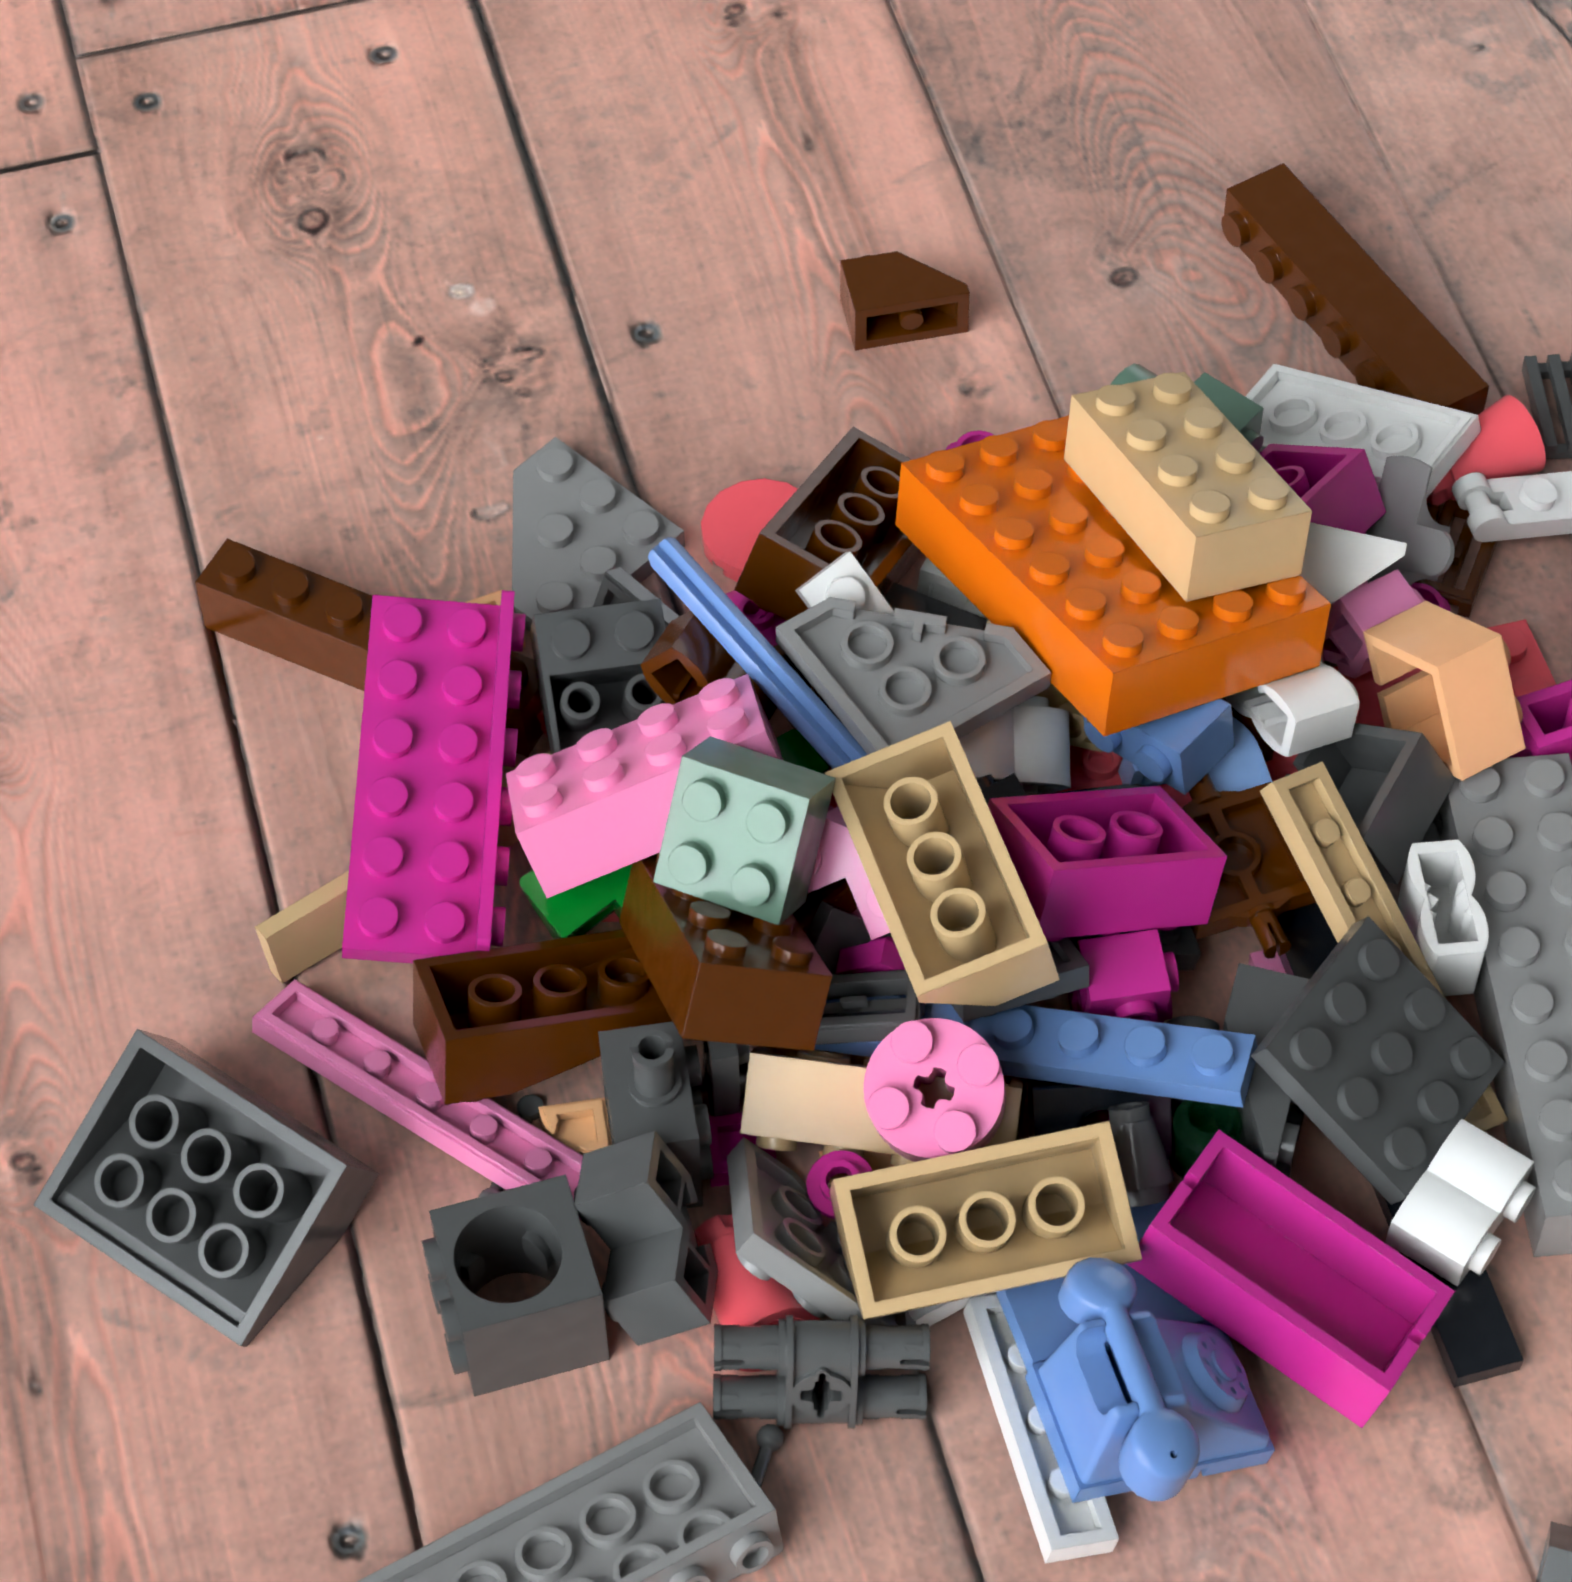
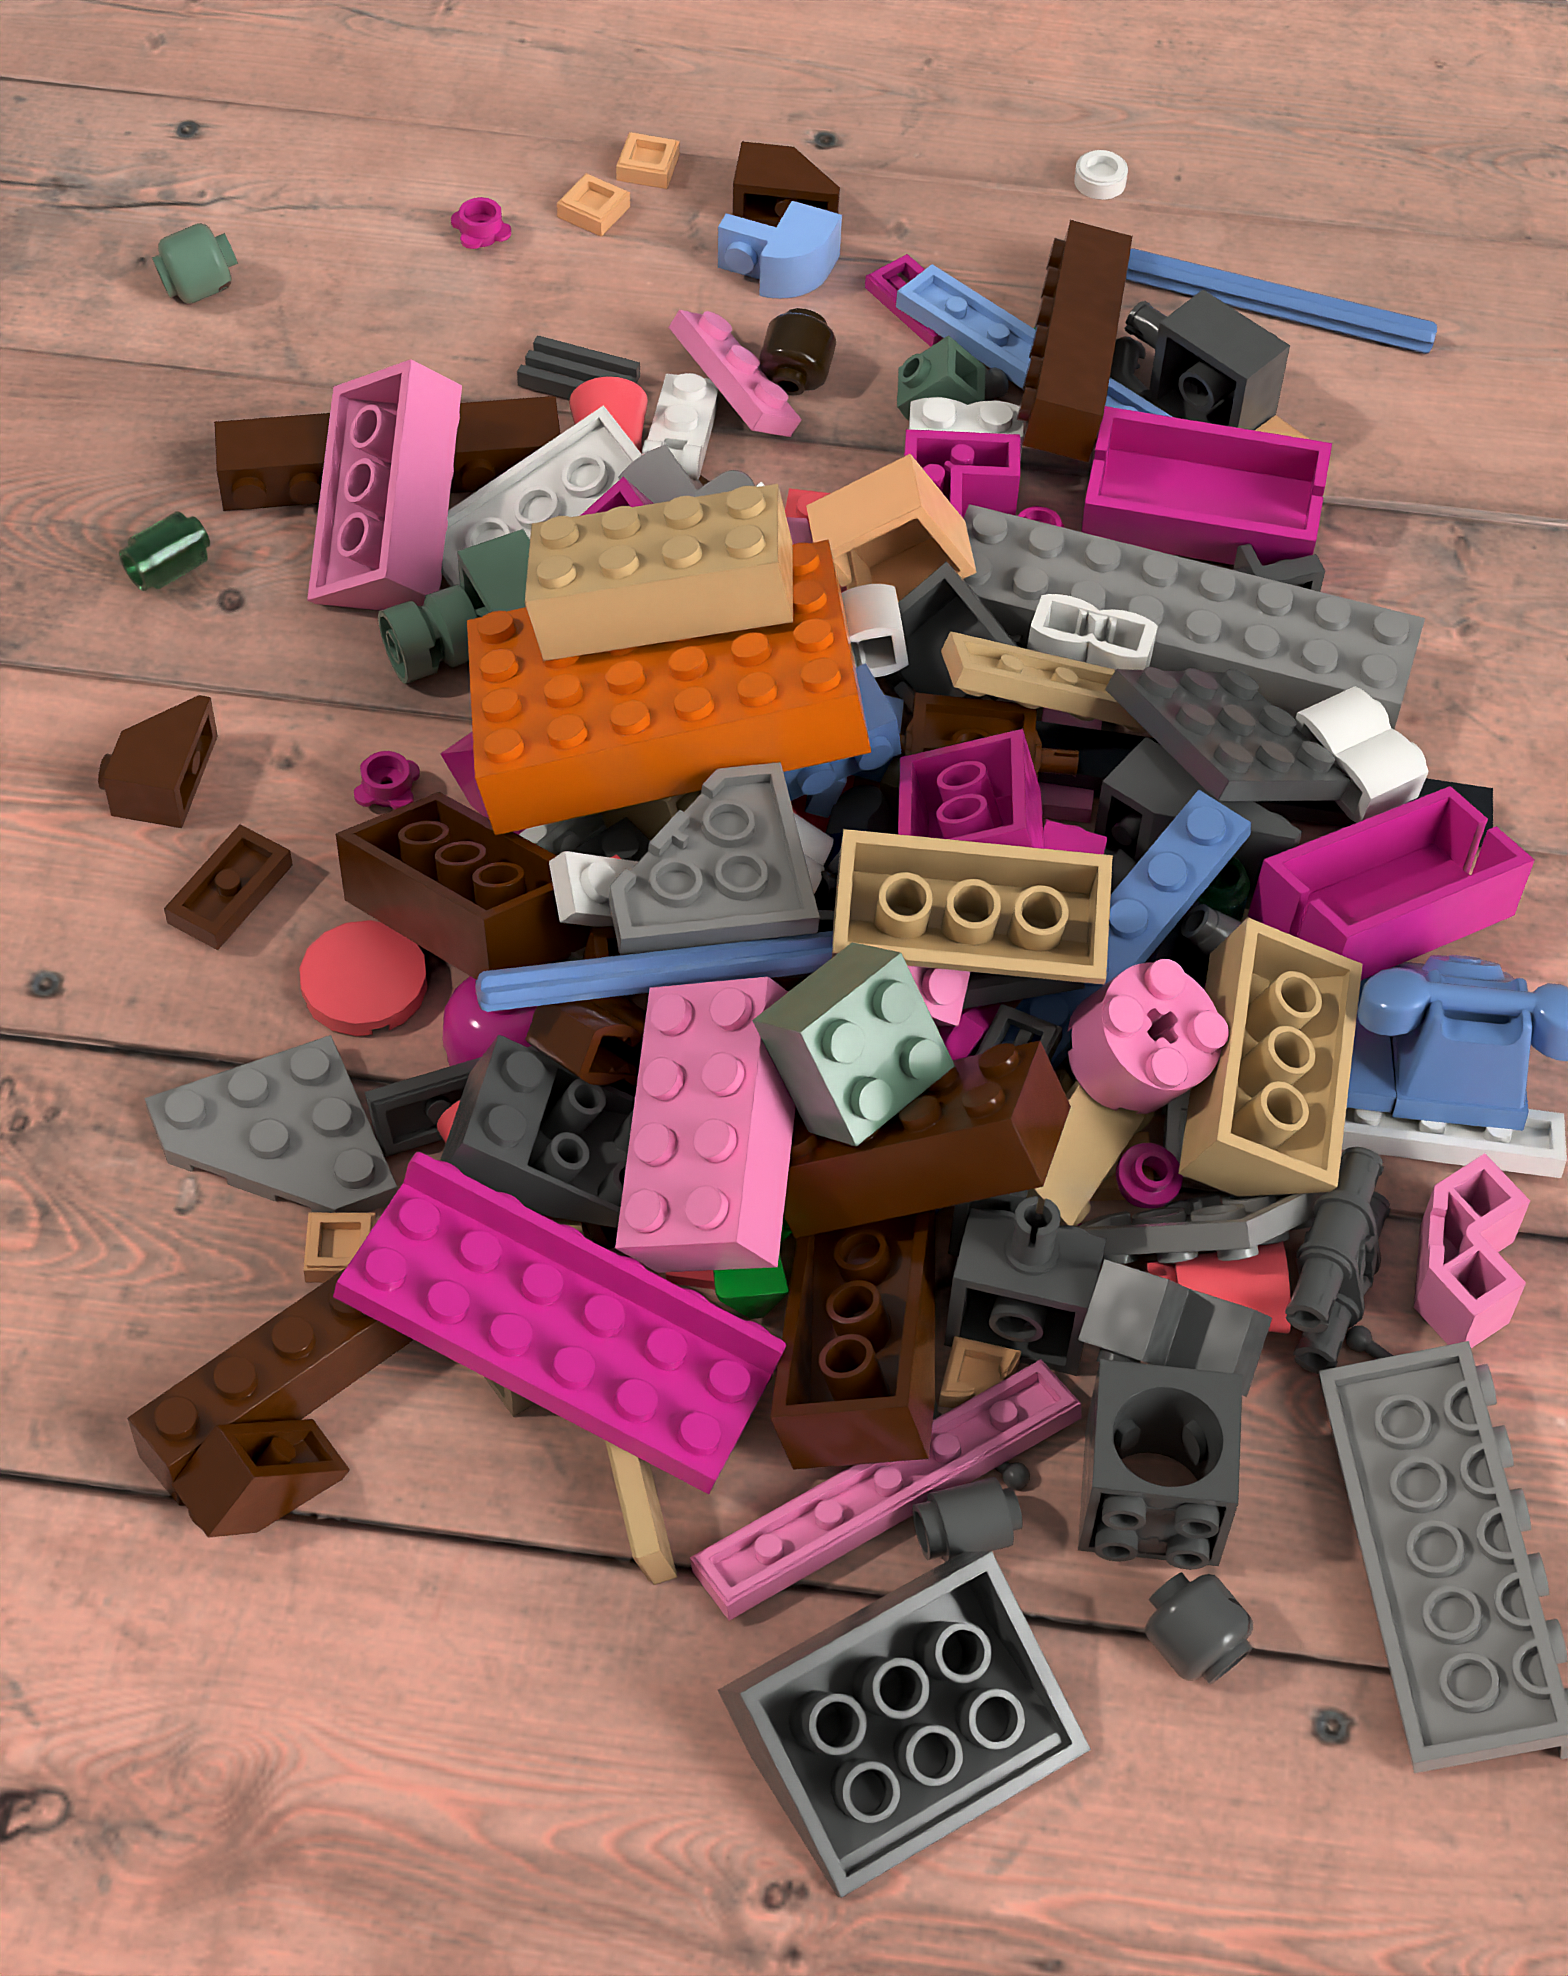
camera: 70 degrees left, 0 degrees up
(239, 656) = (256, 1474): none -> reddish brown slope
(381, 1383) = (1199, 1627): none -> dark grey head
(413, 1166) = (967, 1519): none -> dark grey brick
(797, 400) = (228, 887): none -> reddish brown plate
(912, 1470) = (1460, 1277): none -> bright pink brick
(1131, 202) = (165, 551): none -> clear green brick
(1284, 307) = (385, 489): none -> bright pink slope
(1481, 75) = (194, 263): none -> sand green head

